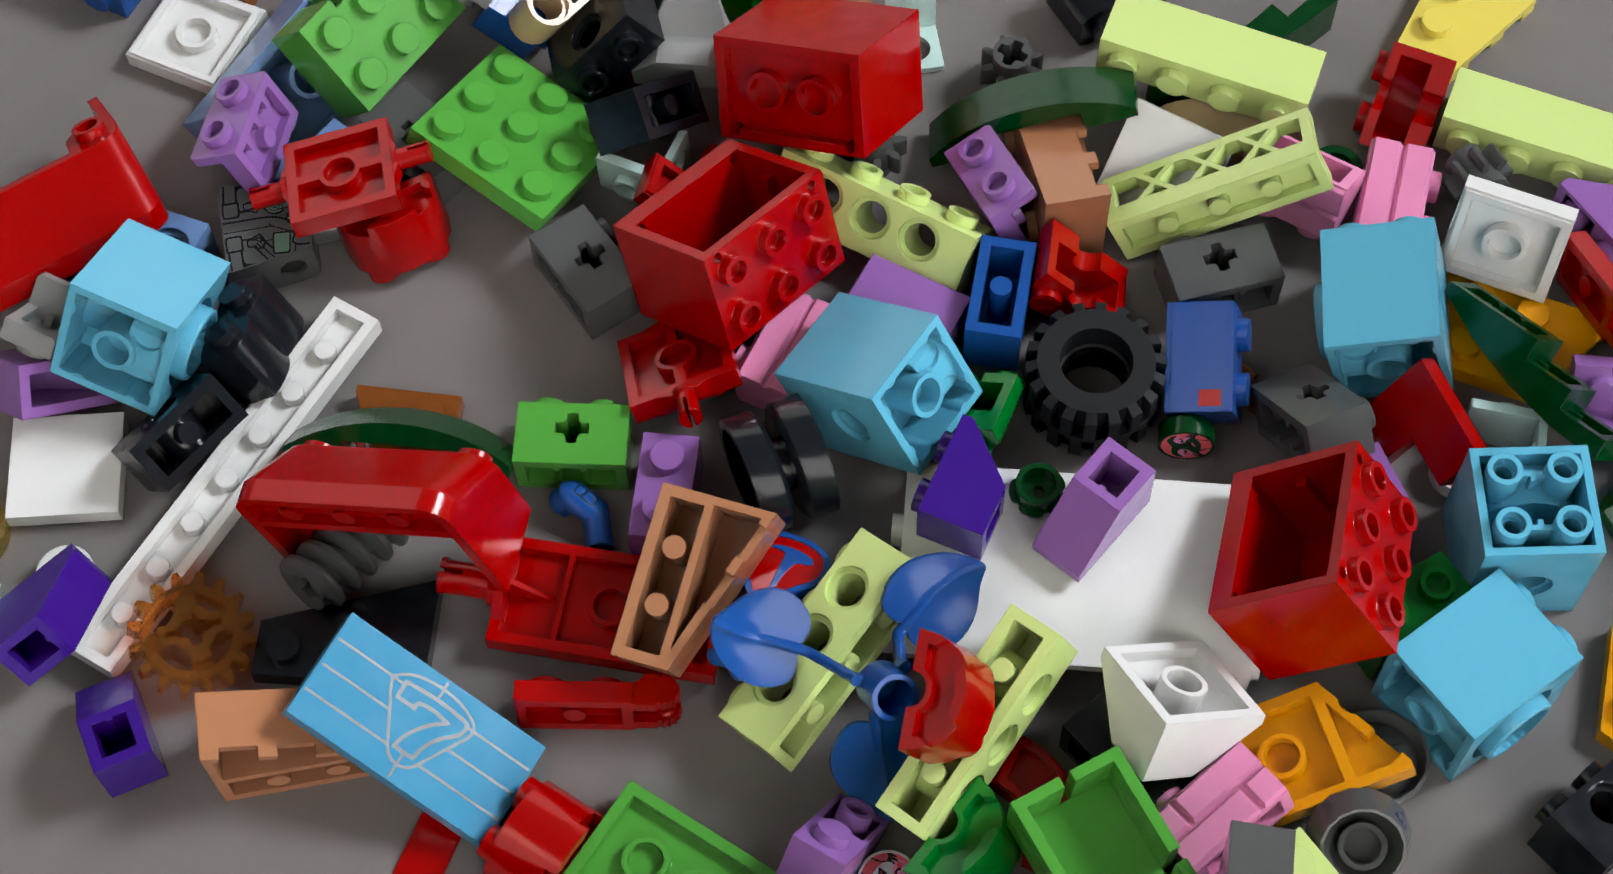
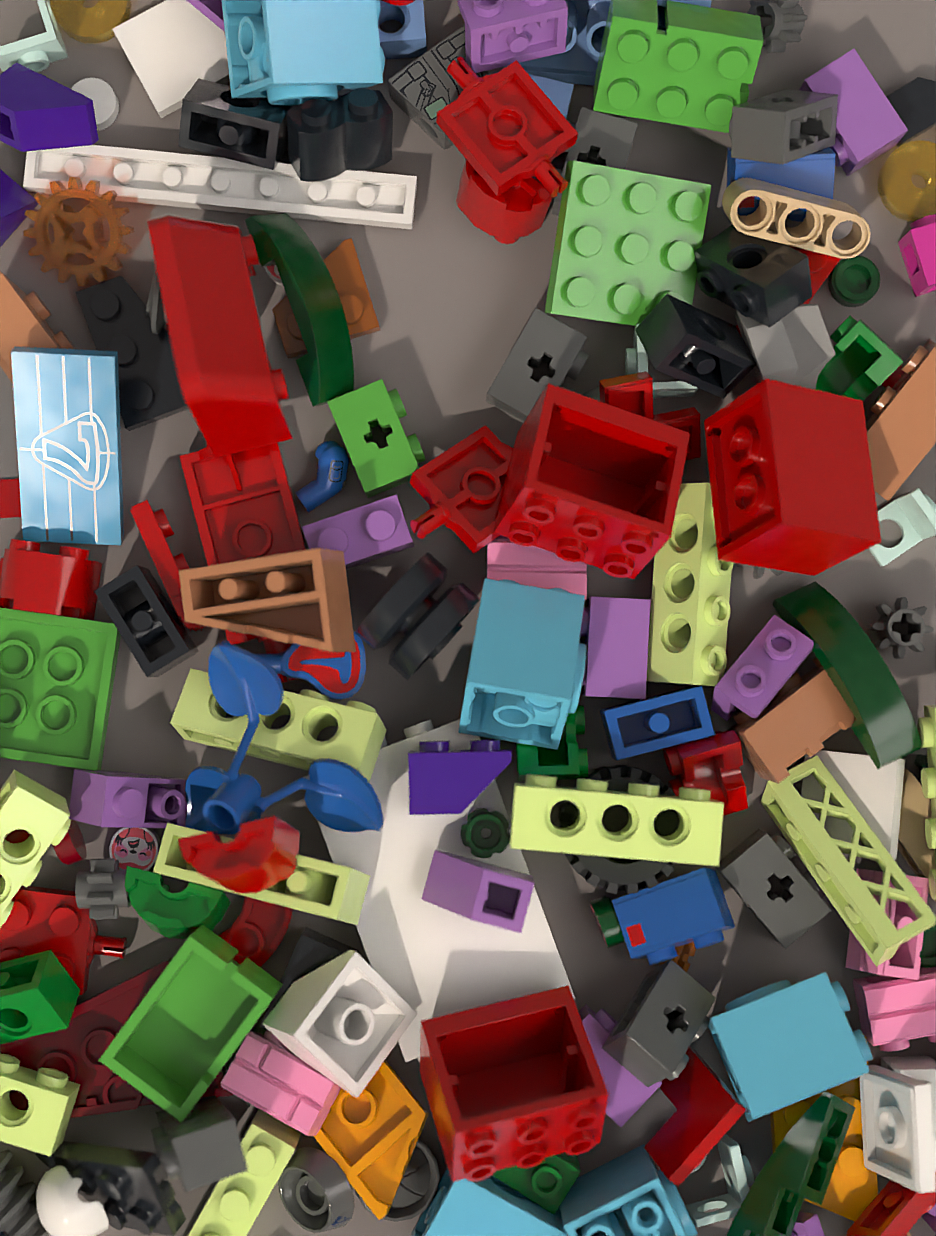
camera: 60 degrees right, 25 degrees up
(644, 742) = (146, 621): none -> black brick
(1050, 427) = (693, 842): none -> yellowish green brick

